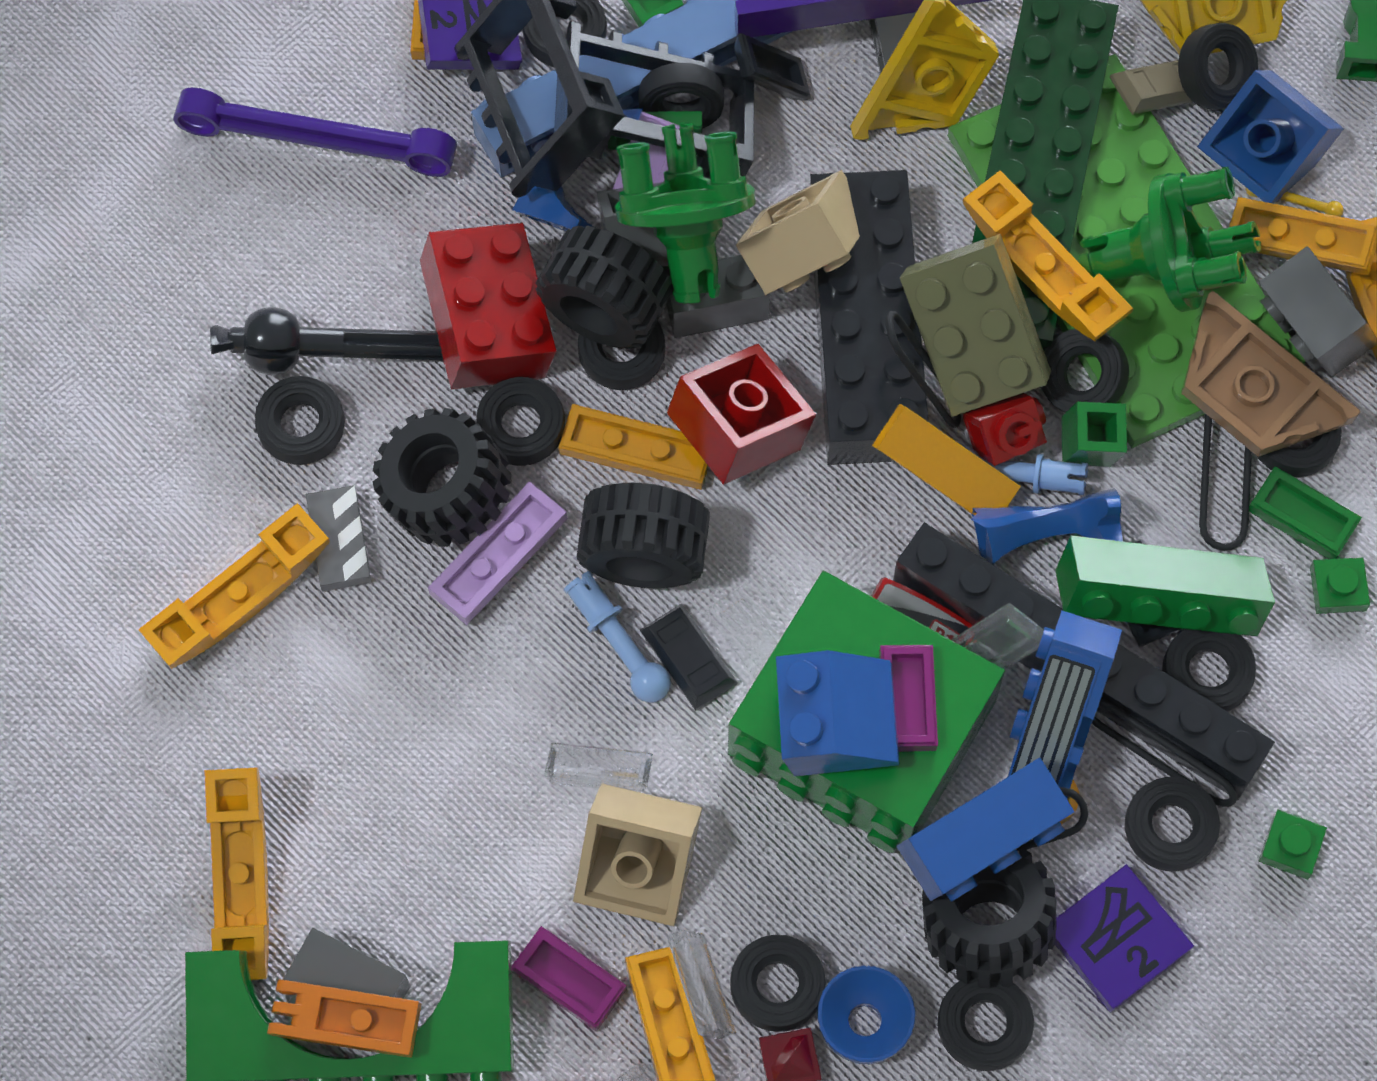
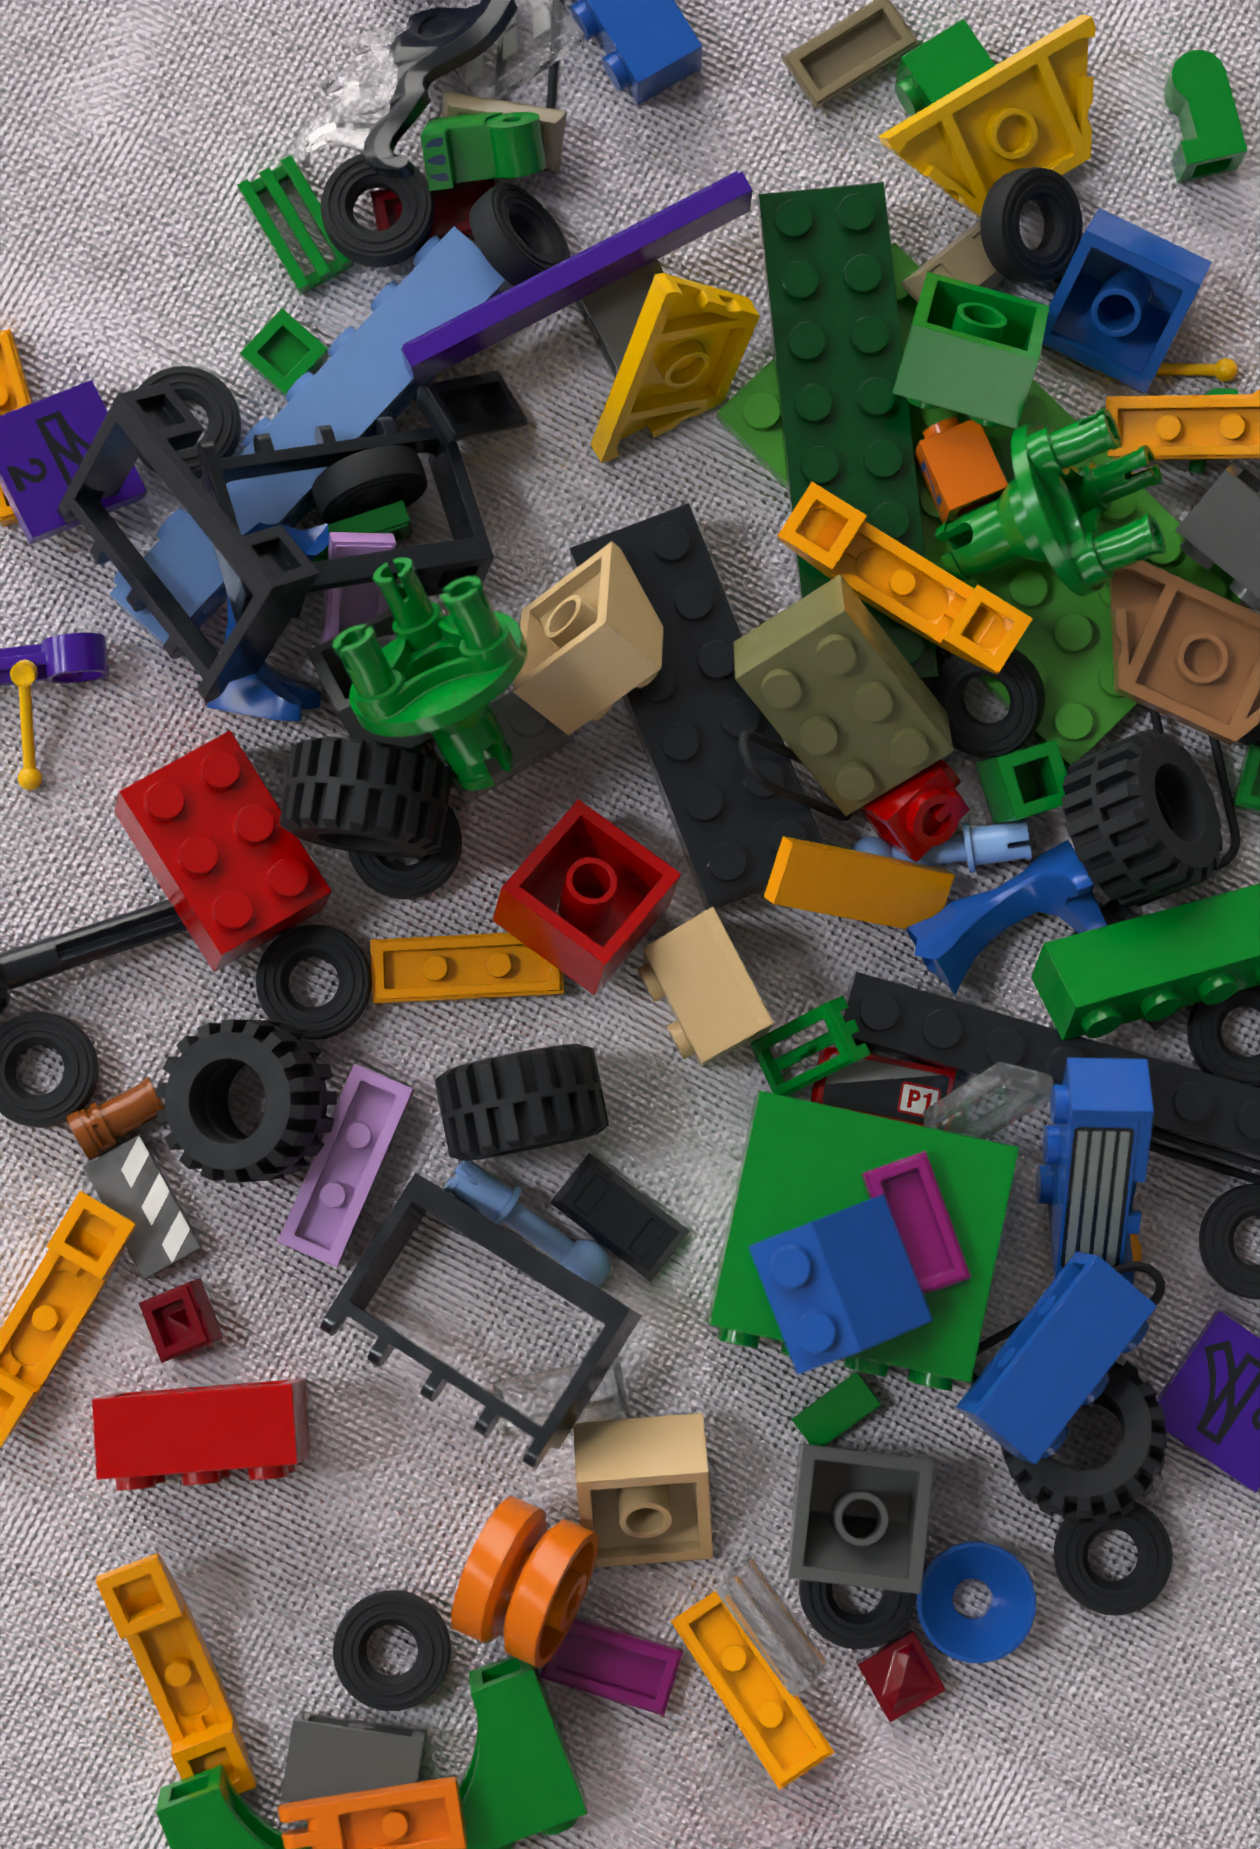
camera: 20 degrees left, 15 degrees up
(323, 695) = (201, 1433): none -> red brick
(336, 623) = (181, 1320): none -> dark red tile
(342, 468) = (103, 1124): none -> dark orange pin
(390, 147) = (23, 675): none -> yellow hinge
(398, 881) = (351, 1658): none -> black tyre
(513, 612) = (382, 1253): none -> black hinge
(524, 878) = (524, 1581): none -> orange wheel
(798, 913) = (860, 1518): none -> dark grey slope
(805, 847) = (836, 1410): none -> green piece
(807, 505) = (704, 989): none -> tan slope
(881, 575) = (838, 1034): none -> green tile
(1112, 199) = (958, 467): none -> orange brick
(1144, 122) = (971, 351): none -> green brick
(1174, 478) = (1142, 818): none -> black tyre

